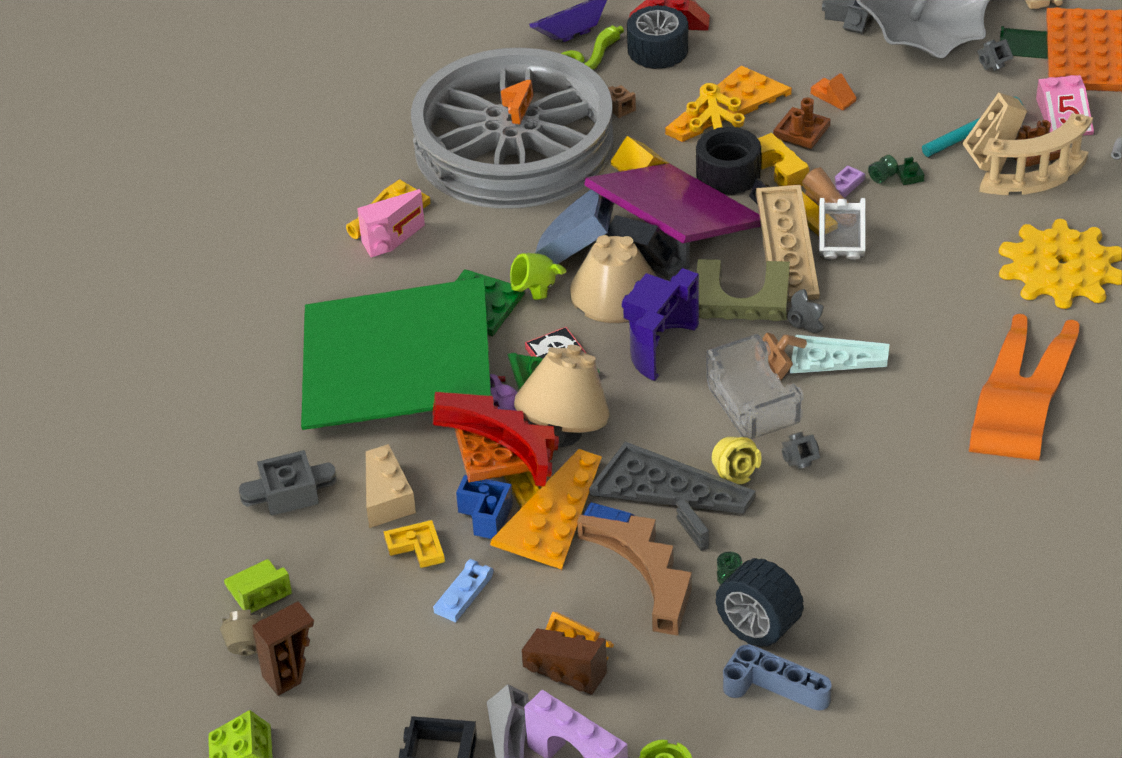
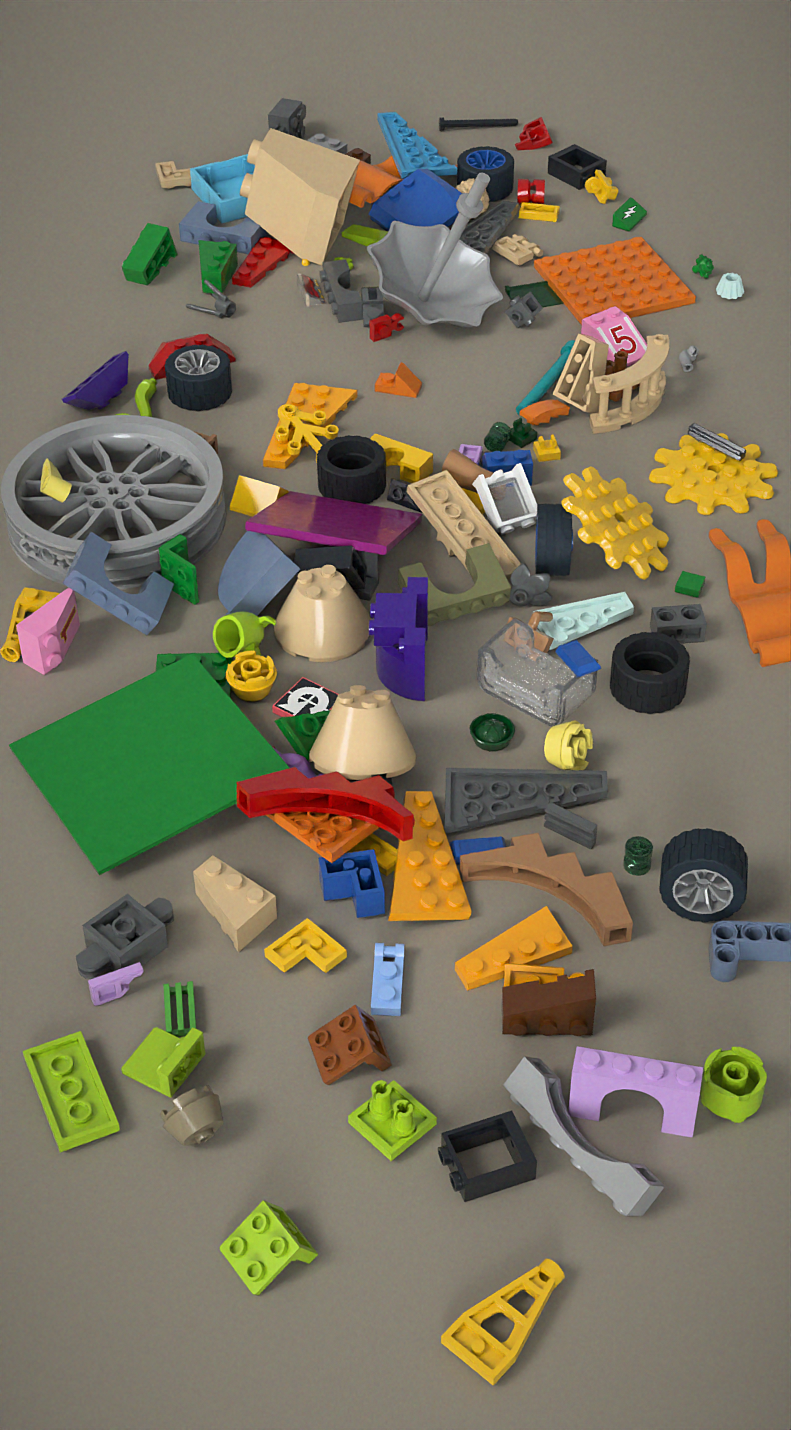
camera: 30 degrees left, 0 degrees up
(179, 582) = (71, 1091): none -> lime plate
(257, 515) = (114, 984): none -> lavender tile
(282, 645) = (255, 1114): reddish brown wedge -> none
(295, 545) = (178, 990): none -> bright green tile
(389, 692) = (391, 1119): none -> lime plate
(399, 623) = (347, 1044): none -> dark orange bracket
(464, 96) = (52, 482): none -> light yellow piece
(469, 227) = (90, 580): none -> sand blue arch
(517, 99) = (112, 468): orange slope -> none
(520, 311) = (251, 675): none -> yellow cone
(525, 200) = (178, 569): none -> green bracket
(588, 605) = (529, 942): none -> light orange wing
(687, 425) = (492, 731): none -> dark green hat
(784, 386) = (577, 658): none -> blue tile
(802, 125) = (394, 420): dark orange plate -> none
(807, 450) = (621, 716): dark grey brick -> none
(850, 276) = (553, 540): none -> black wheel
(853, 440) = (653, 653): none -> black tyre
(856, 34) = (383, 326): none -> red plate
(878, 199) = (507, 461): none -> blue slope
(903, 295) = (600, 507): none -> yellow plate
(915, 388) = (680, 622): none -> dark grey brick
(922, 194) = (546, 449): none -> yellow tile
(939, 156) = (543, 411): none -> orange slope
(958, 357) = (690, 584): none -> green tile
(1079, 234) = (716, 442): none -> axle

